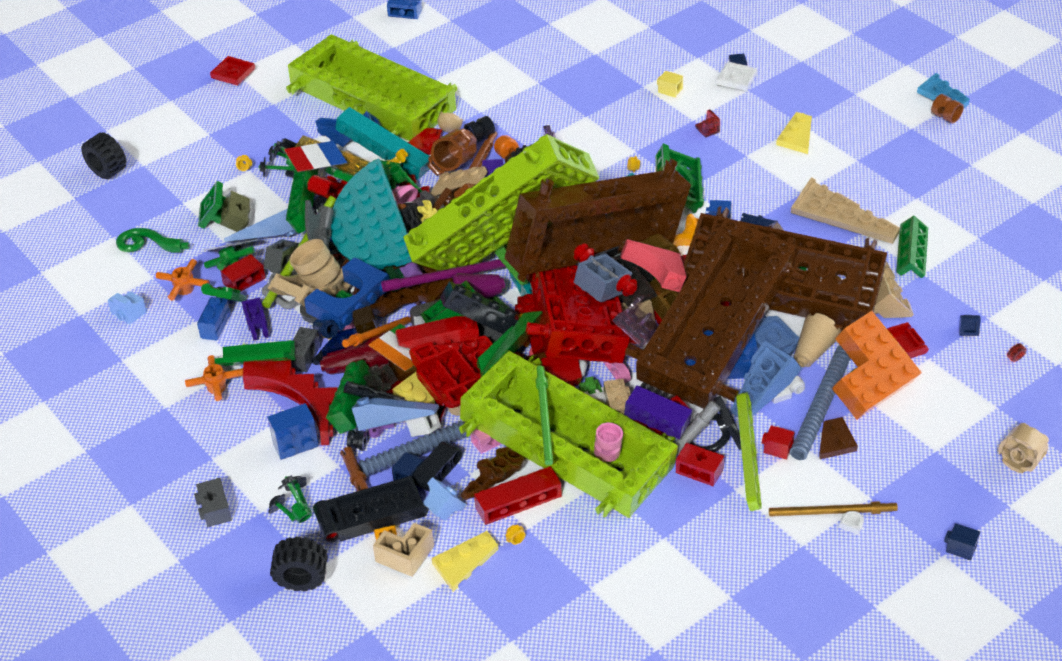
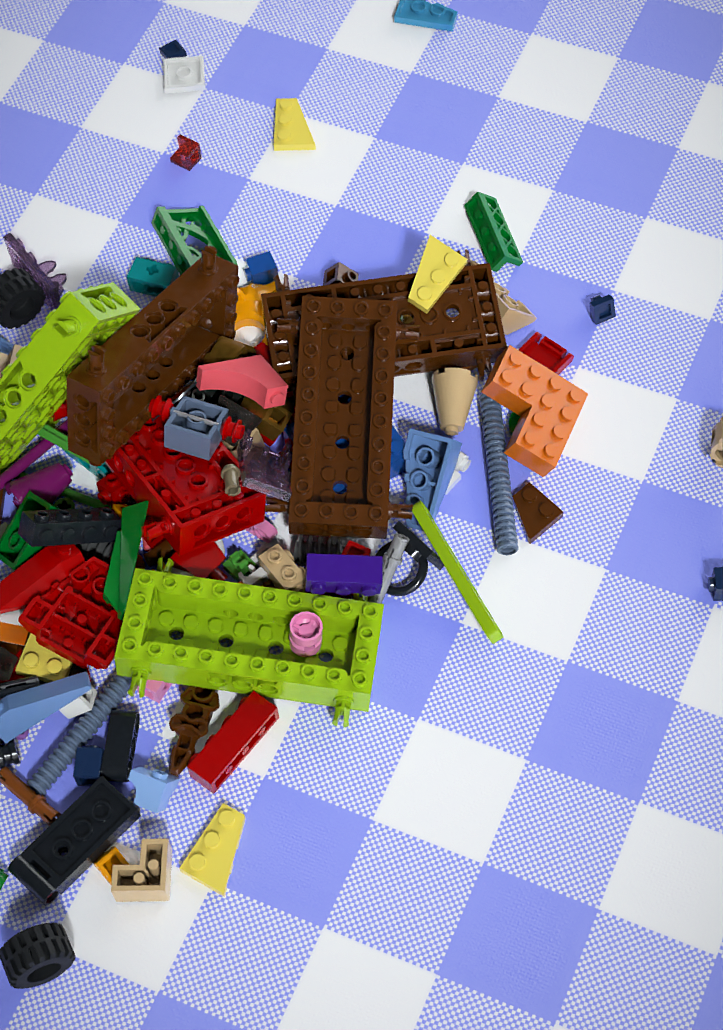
camera: 25 degrees left, 15 degrees up
(515, 534) = (256, 792): yellow plate -> none
(542, 385) = (199, 599): bright green bar -> none
(608, 315) = (230, 475): none -> dark tan pin
(633, 164) = (127, 240): yellow plate -> none
(670, 84) = (112, 113): light yellow brick -> none
(699, 464) = (420, 618): red brick -> none
(758, 220) = (310, 264): dark blue pin -> none
(776, 333) = (412, 411): medium blue wing -> none
(778, 442) = (479, 544): red brick -> none
(839, 211) = (387, 214): tan wing -> none
(839, 244) = (435, 273): none -> light yellow wing
(852, 522) = (604, 609): white tile -> none
(873, 507) = (617, 581): pearl gold bar -> none
(947, 108) = (440, 33): dark orange wheel -> none
(1017, 352) = (666, 323): clear red tile -> none

